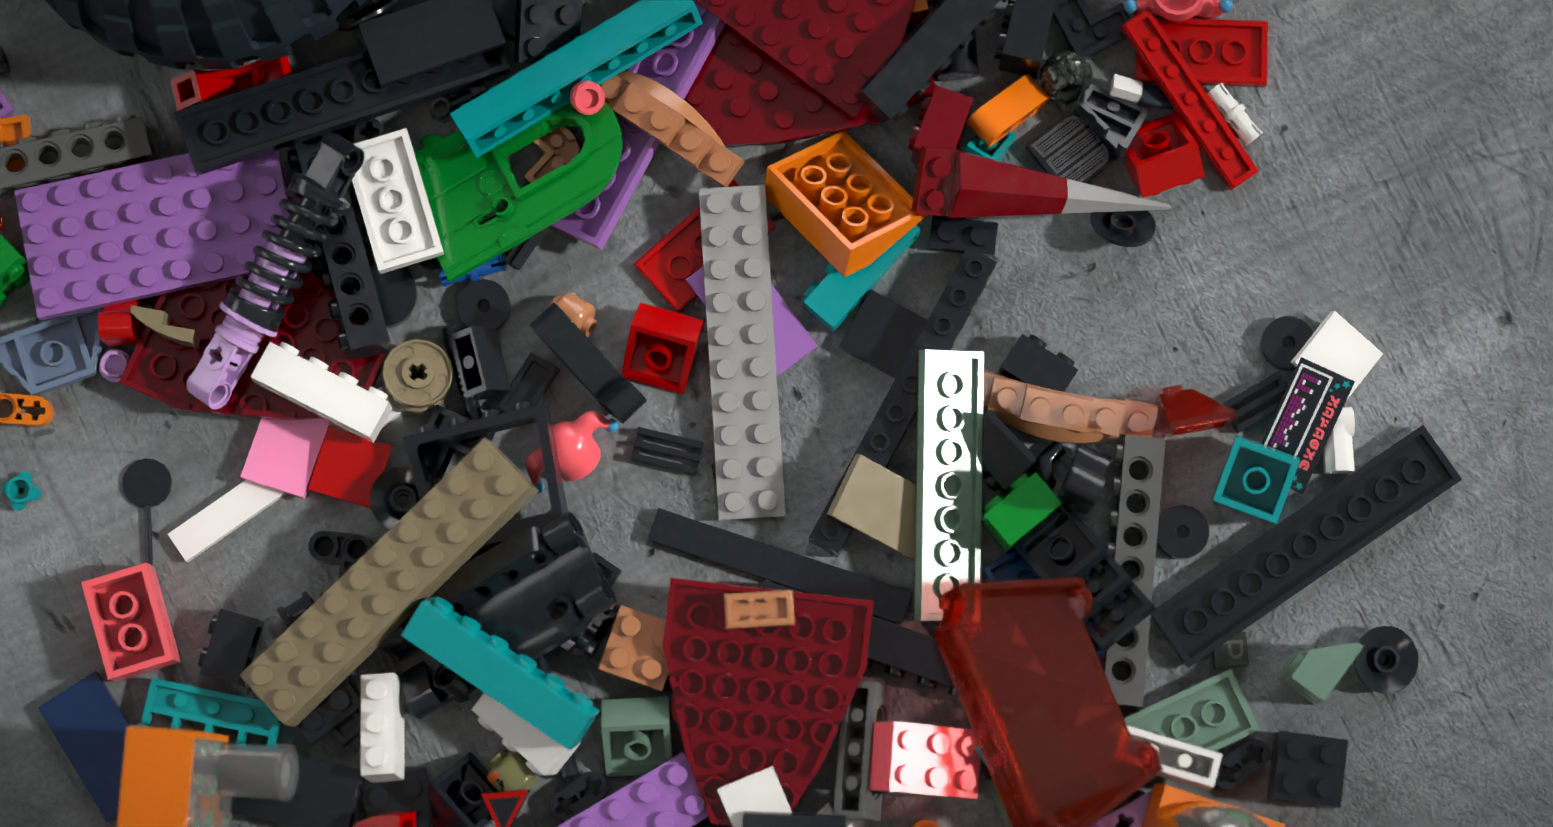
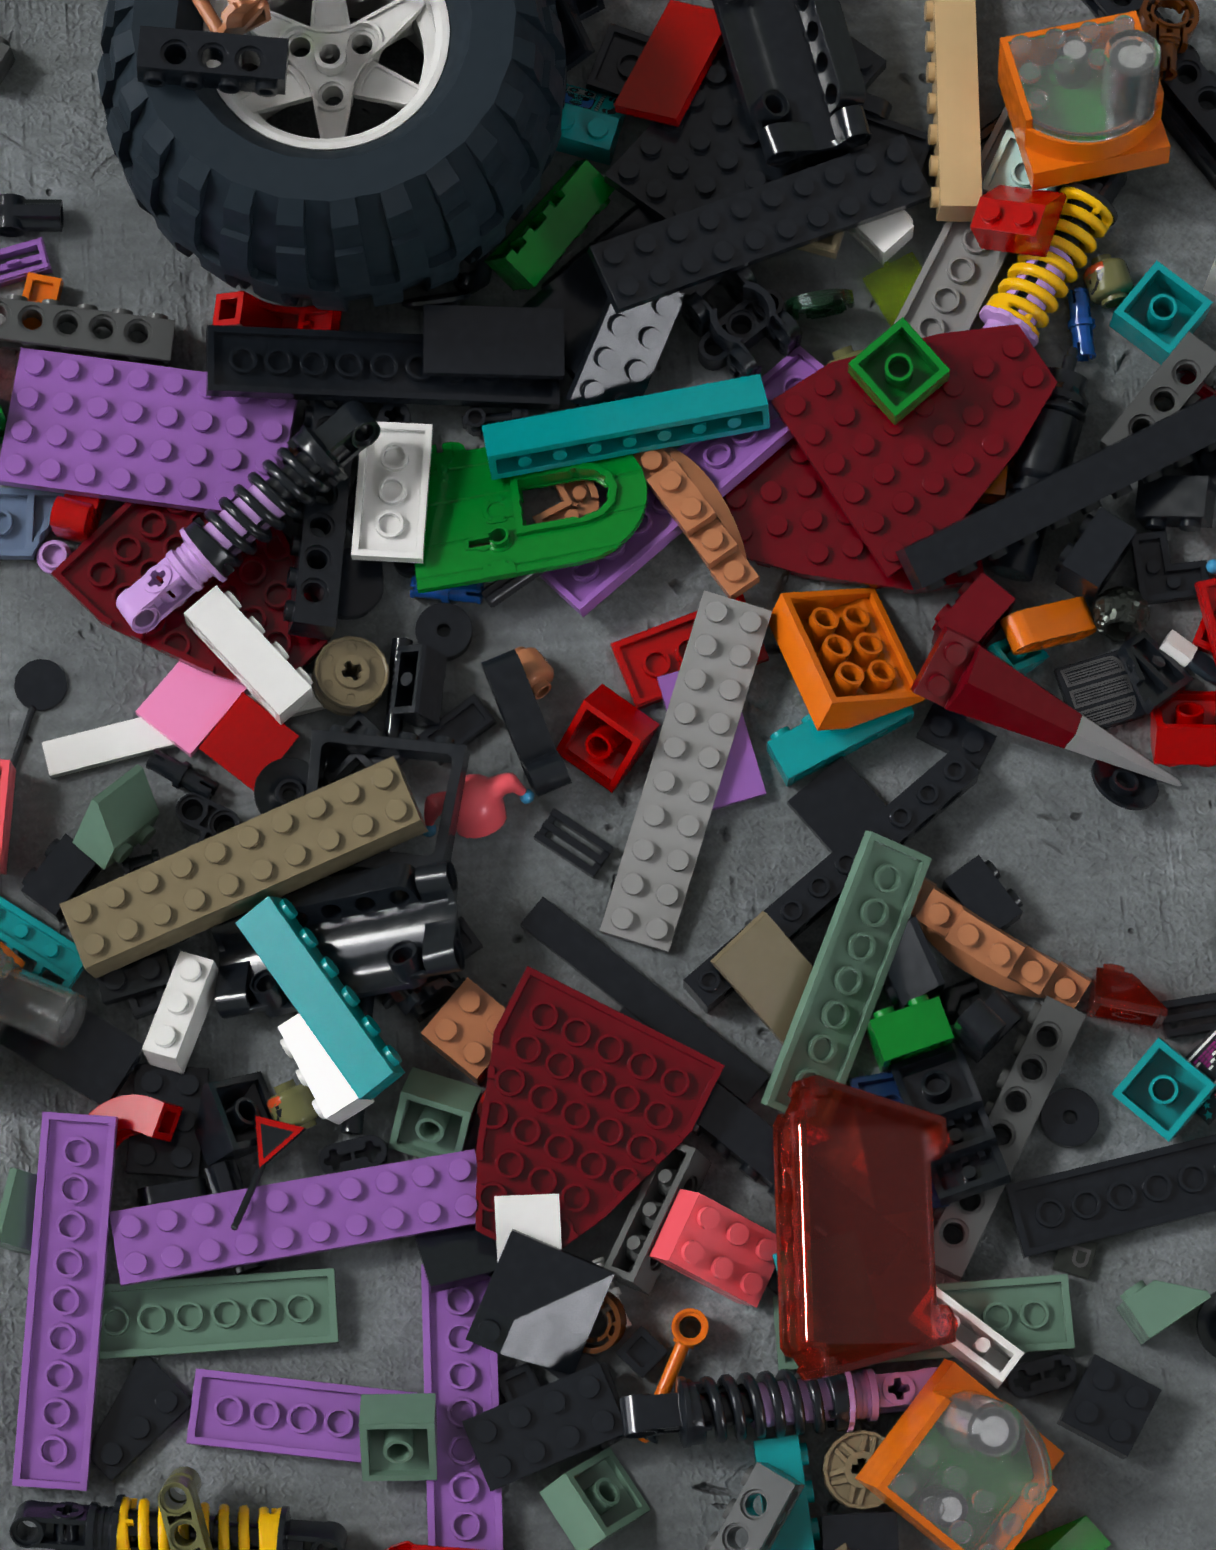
camera: 20 degrees right, 5 degrees down
(160, 323) = (114, 528): dark tan slope -> none
(262, 580) = (118, 819): none -> sand green slope
(302, 517) = (181, 774): none -> black pin
(587, 97) = (625, 458): coral tile -> none
(759, 609) = (605, 1029): nougat plate -> none

